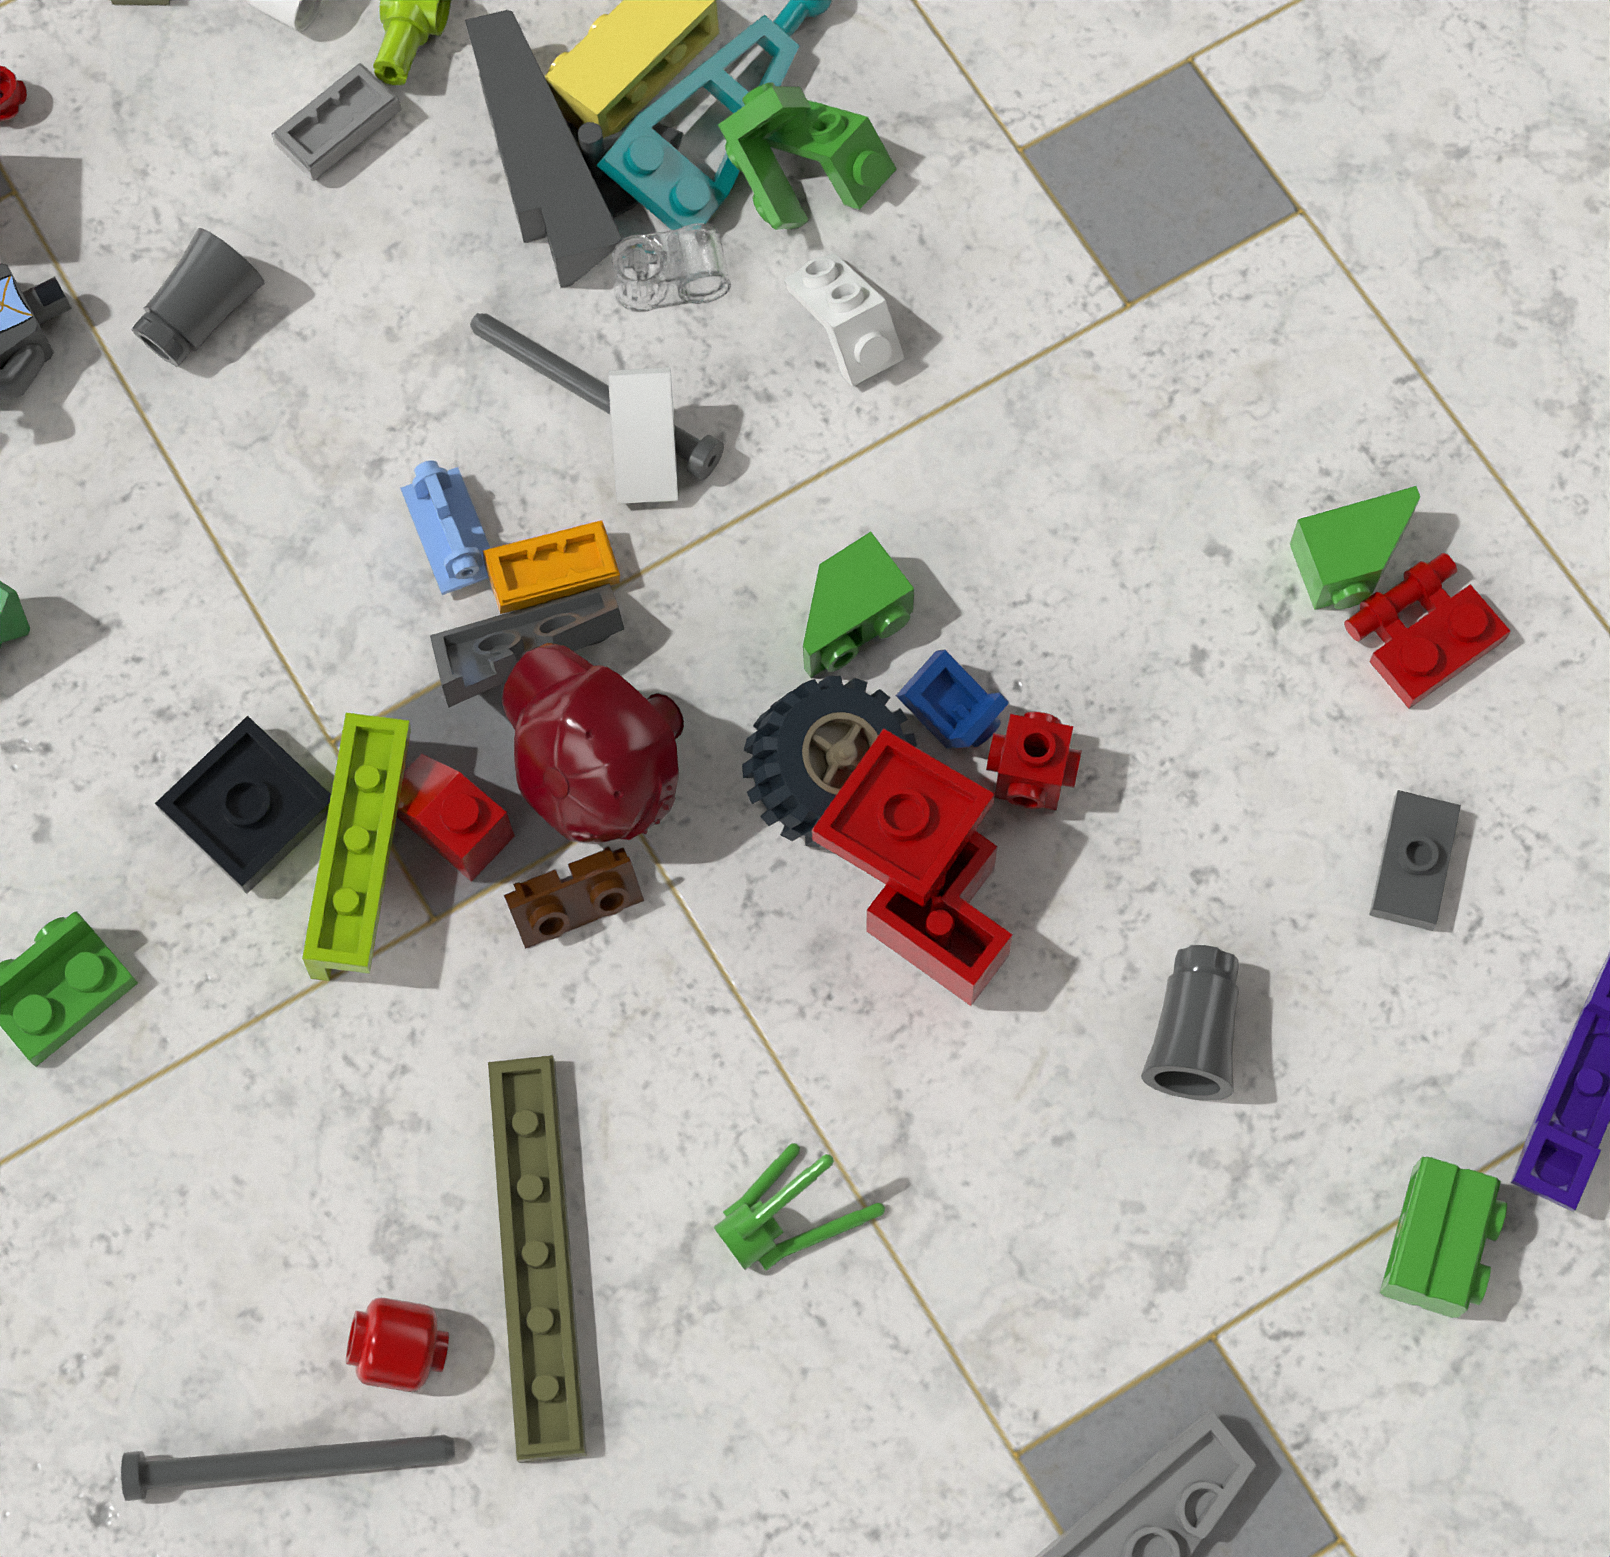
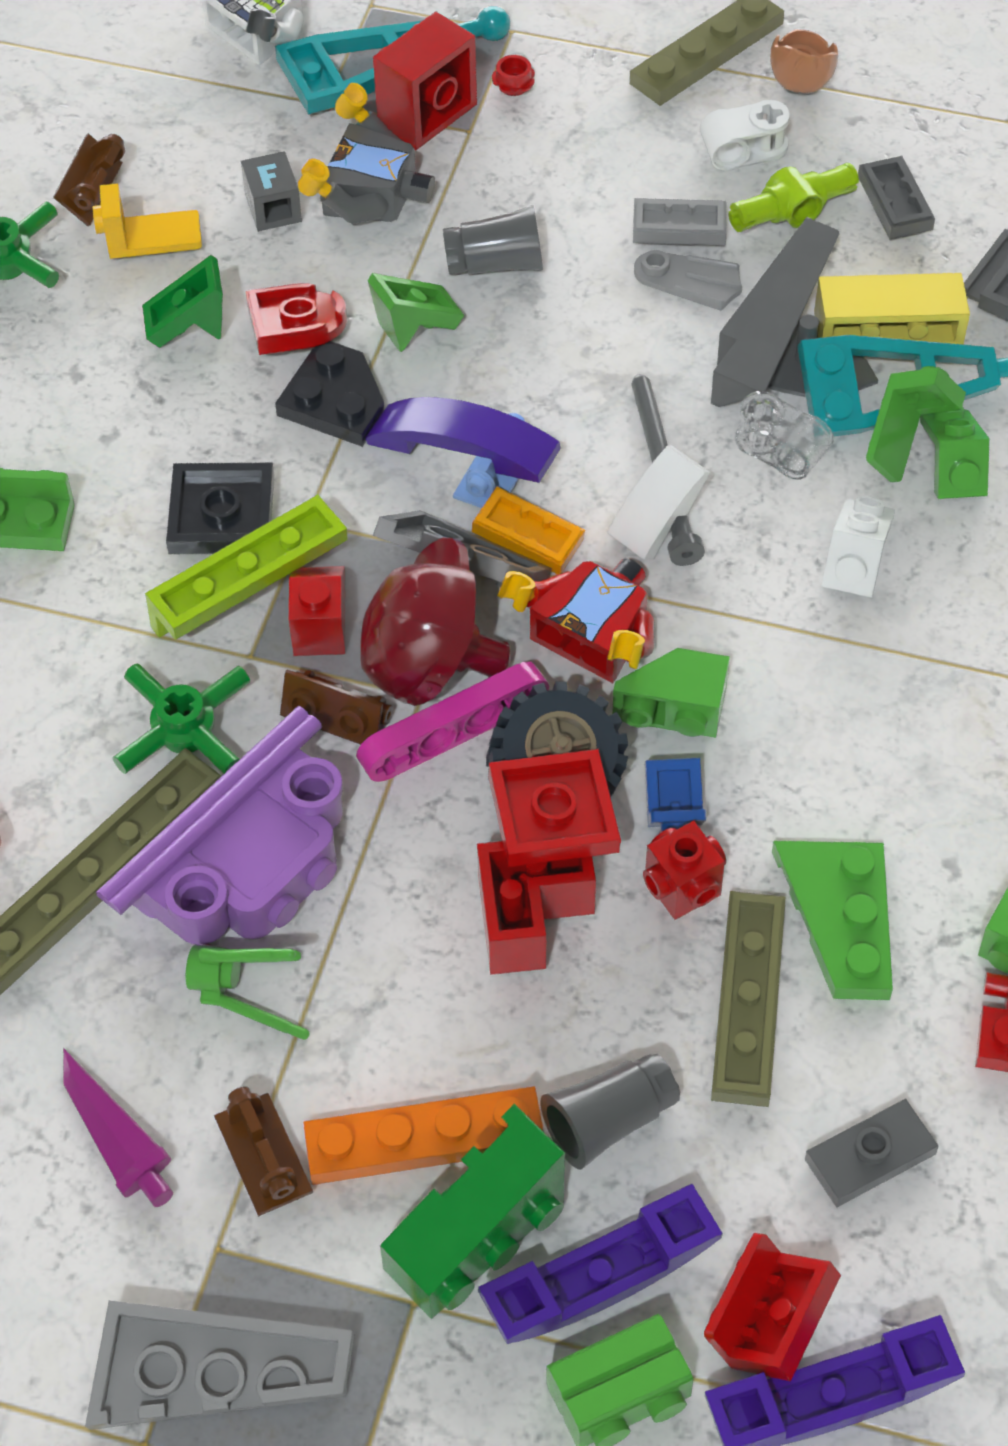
camera: 45 degrees right, 15 degrees down
(85, 547) = (294, 317): none -> red tile
(191, 437) = (407, 304): none -> bright green slope
(212, 589) = (333, 394): none -> black plate
(392, 523) = (467, 428): none -> dark purple slope
(403, 171) = (690, 277): none -> light grey piece
(474, 1052) = (181, 718): none -> green bar
(652, 1098) = (242, 847): none -> medium lavender brick
(692, 812) = (445, 723): none -> dark pink beam
(705, 599) = (588, 615): none -> torso
(846, 1453) = (125, 1147): none -> magenta bar
(967, 1342) = (262, 1151): none -> reddish brown hinge
(1071, 1195) = (410, 1135): none -> orange plate
(1178, 667) = (845, 911): none -> bright green wing
(1189, 821) = (748, 999): none -> olive tile
(1203, 1221) = (479, 1217): none -> green wedge
(1329, 1161) = (602, 1271): none -> dark purple slope
(1487, 1064) = (770, 1309): none -> red bracket

